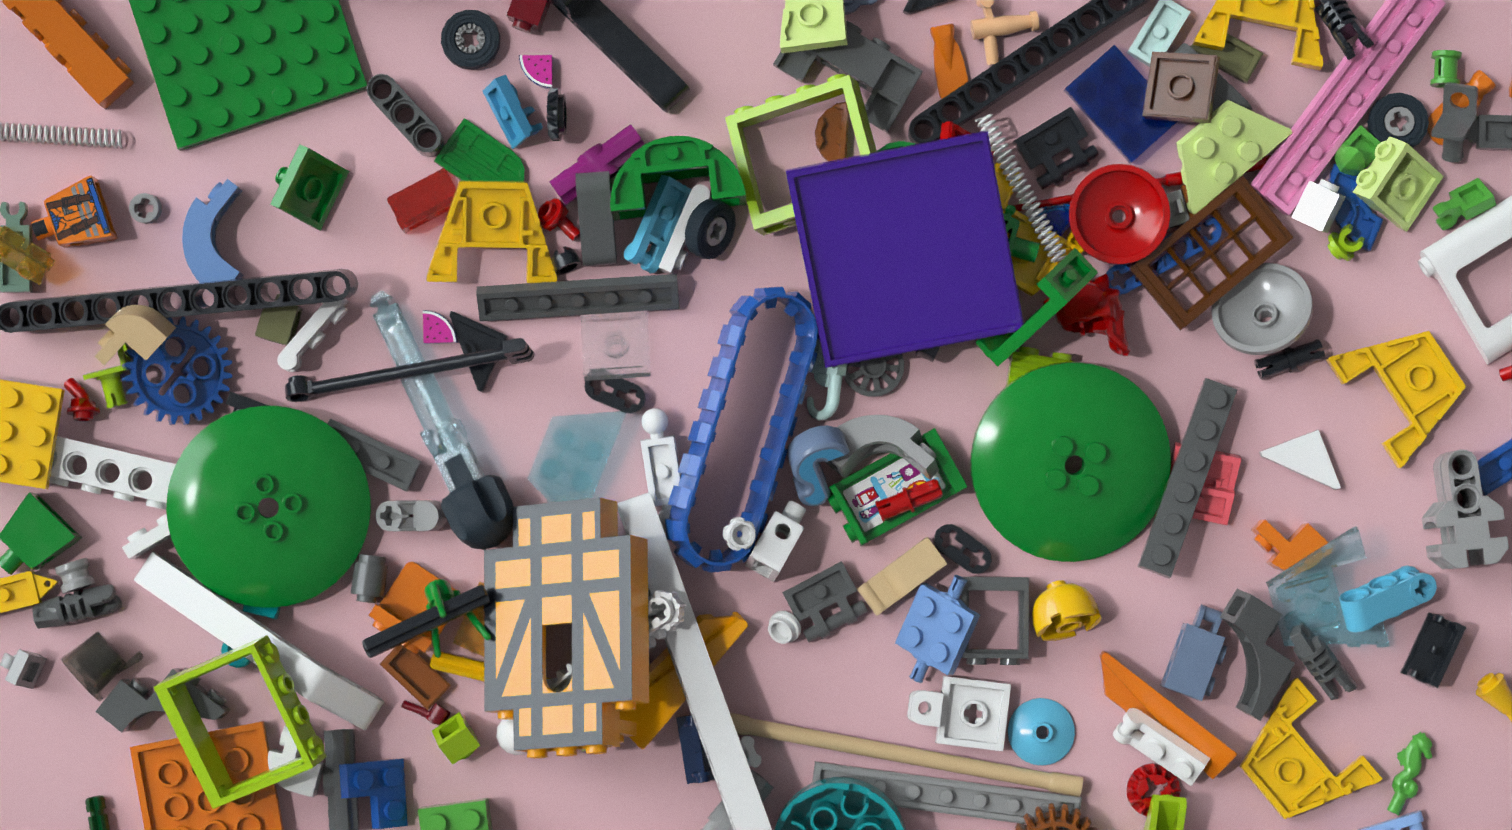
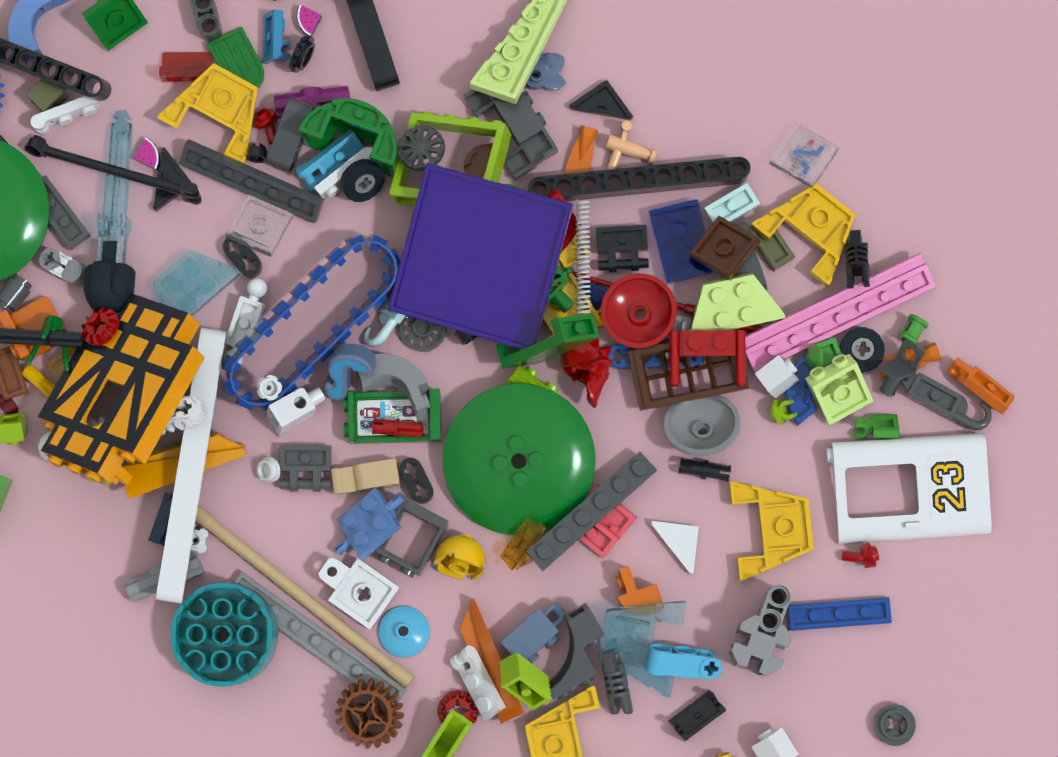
camera: 30 degrees right, 5 degrees down
(510, 571) = (103, 333): none -> red gear
(763, 154) = (421, 147): none -> dark grey wheel
(1125, 555) = (527, 534): none -> clear yellow hinge
(1219, 717) = (524, 681): none -> lime brick
(1220, 212) = (707, 344): none -> red plate

